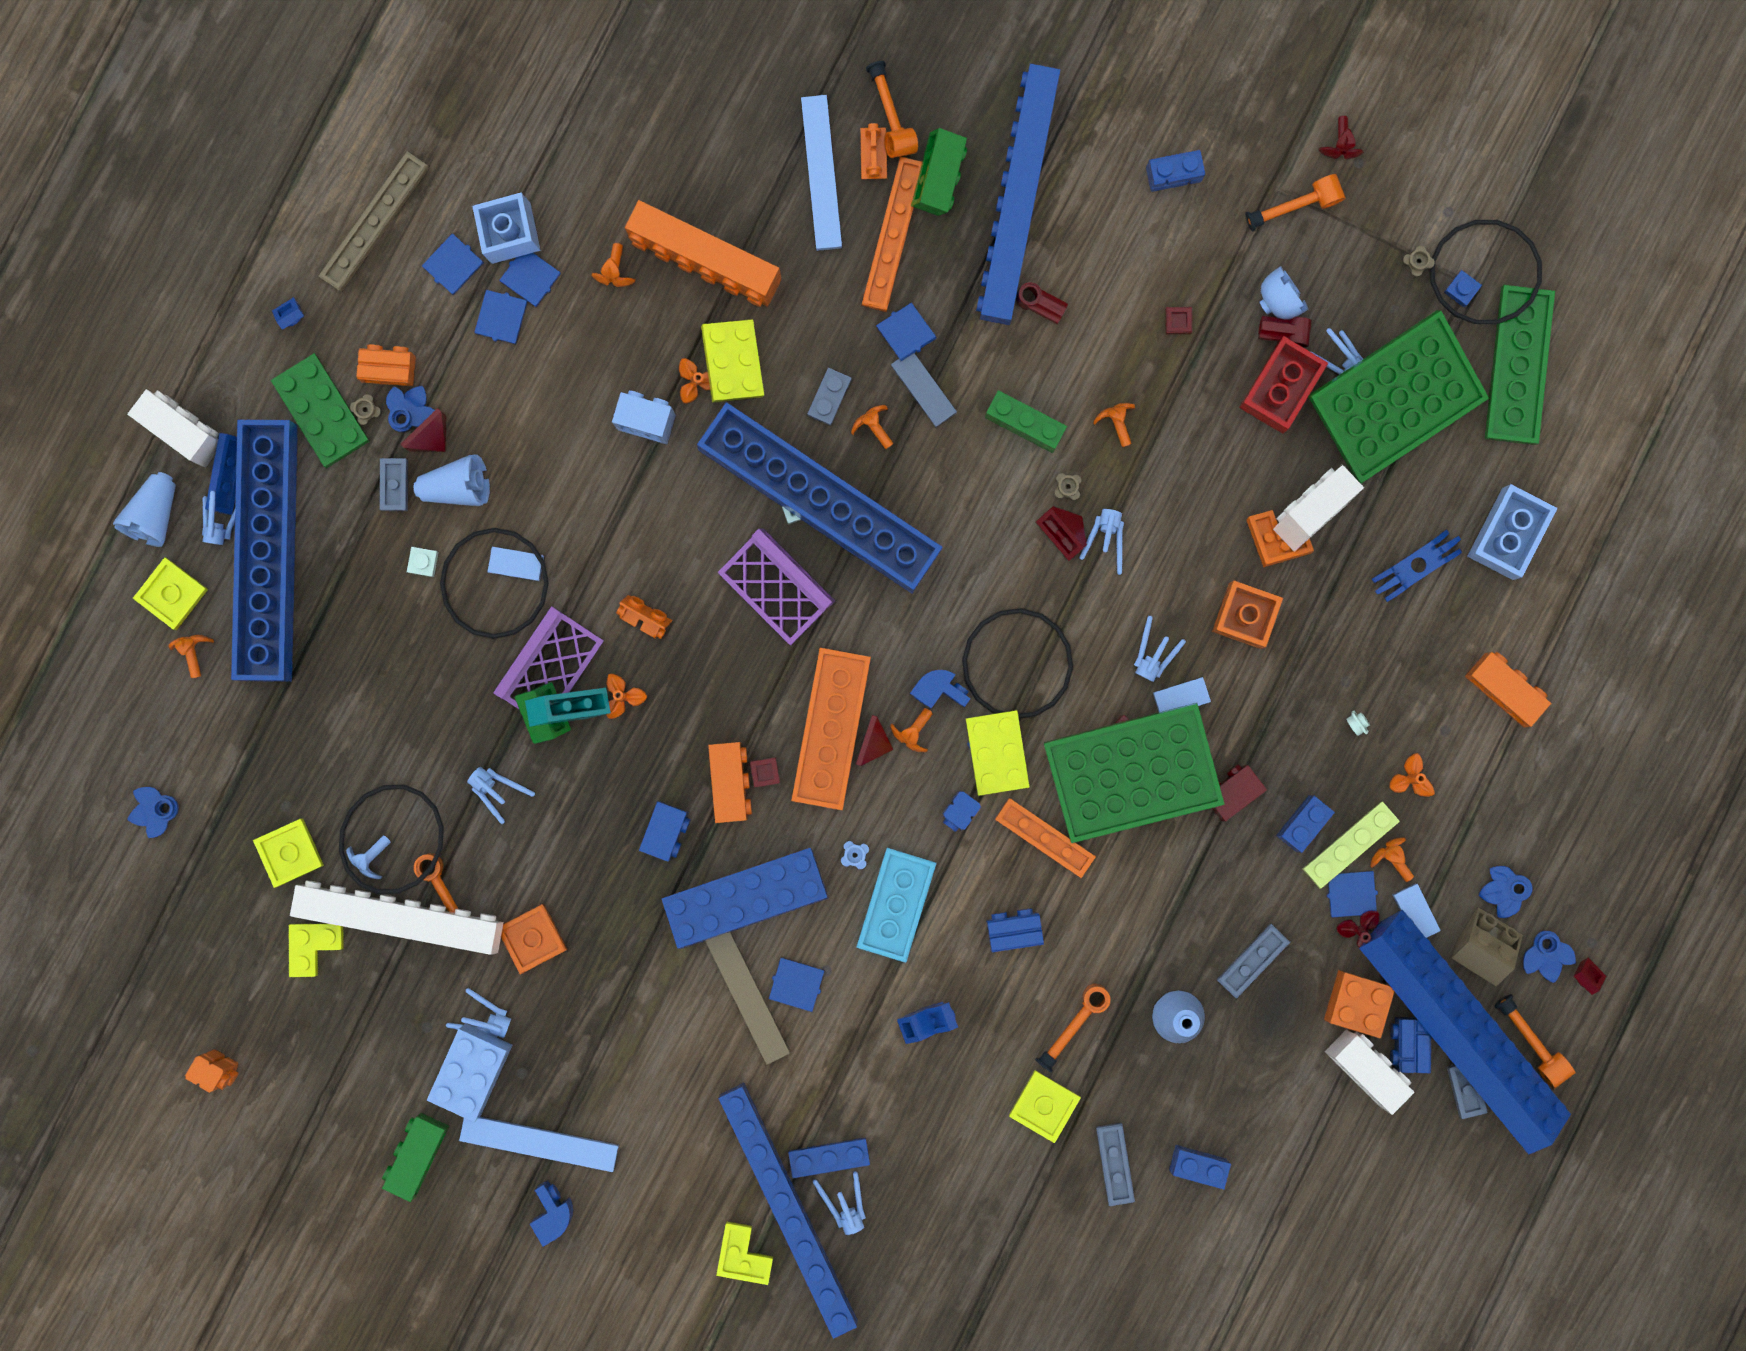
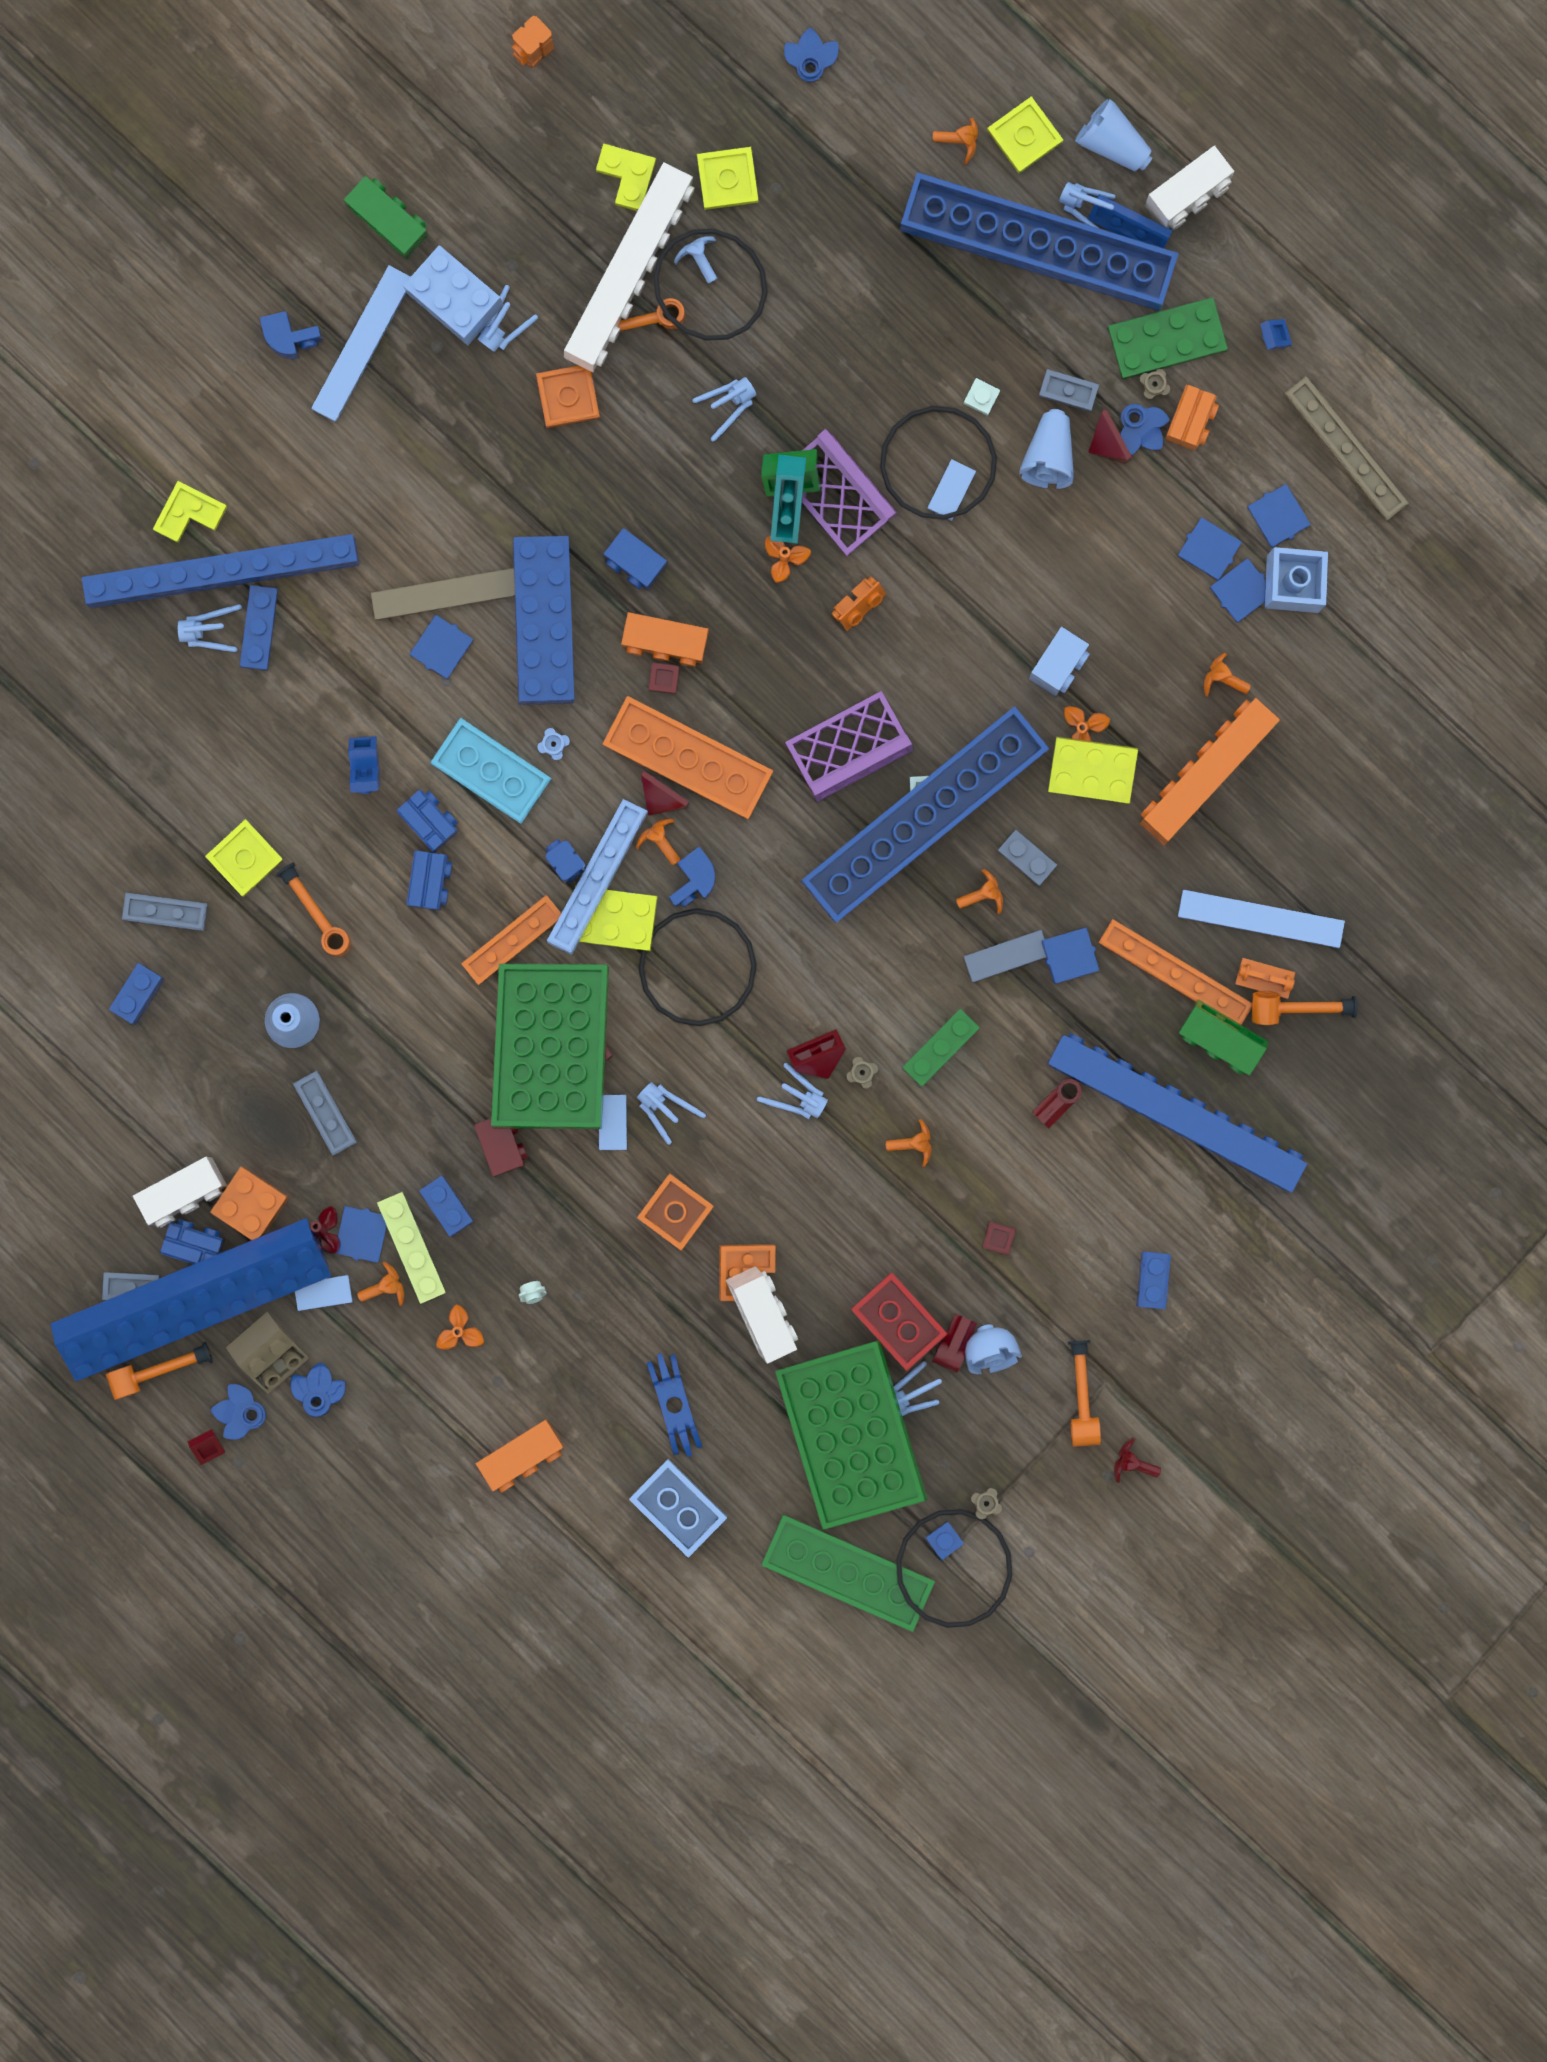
camera: 100 degrees right, 0 degrees up
(960, 948) = (427, 820): none -> blue brick
(965, 777) = (597, 877): none -> light blue tile

